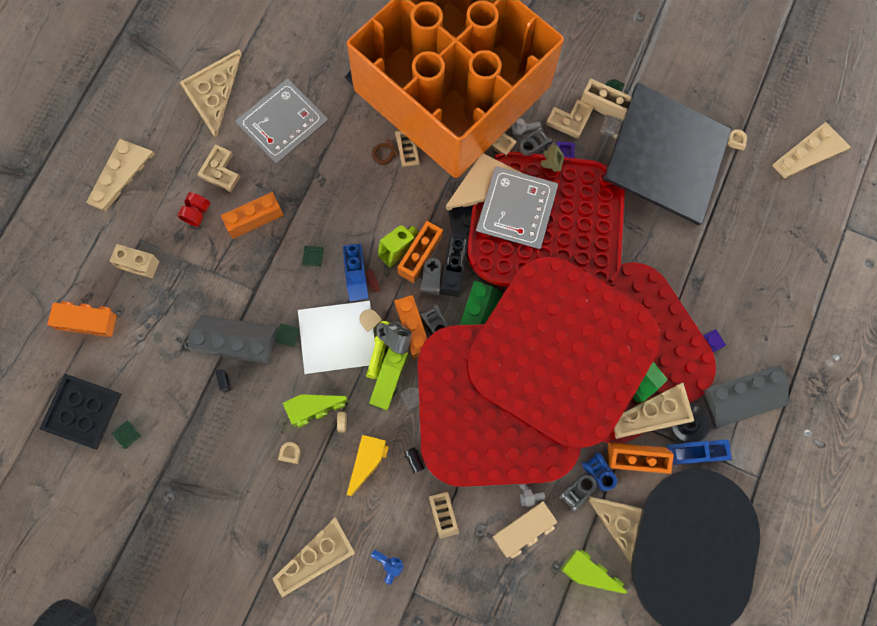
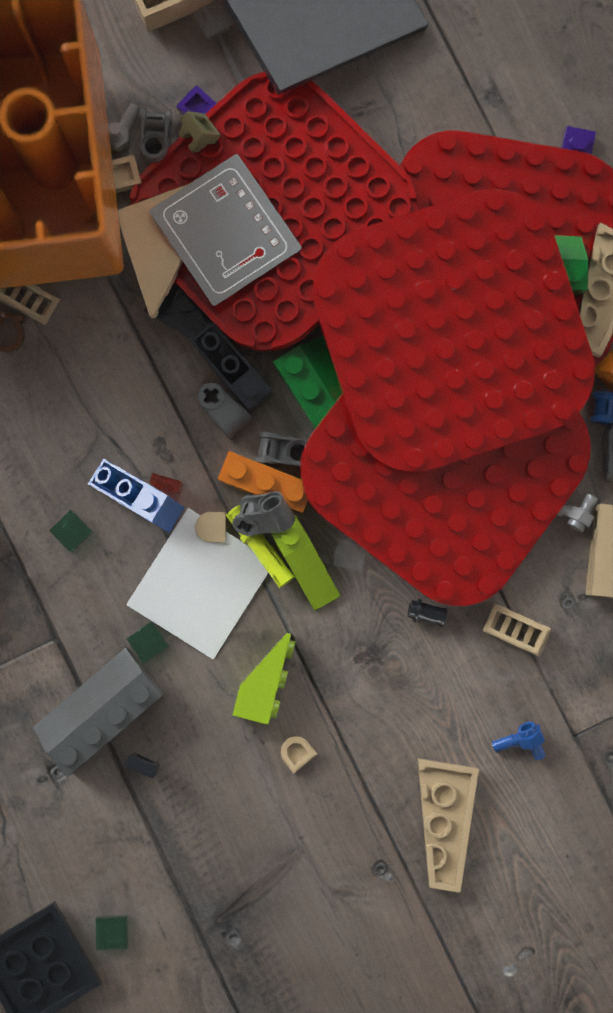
camera: 50 degrees left, 10 degrees up
(342, 422) = (311, 661): tan tile -> none
(368, 459) = (382, 665): yellow slope -> none
(396, 244) = (146, 416): lime torso -> none
(420, 251) = (179, 395): orange brick -> none
(570, 123) = (166, 66): tan plate -> none

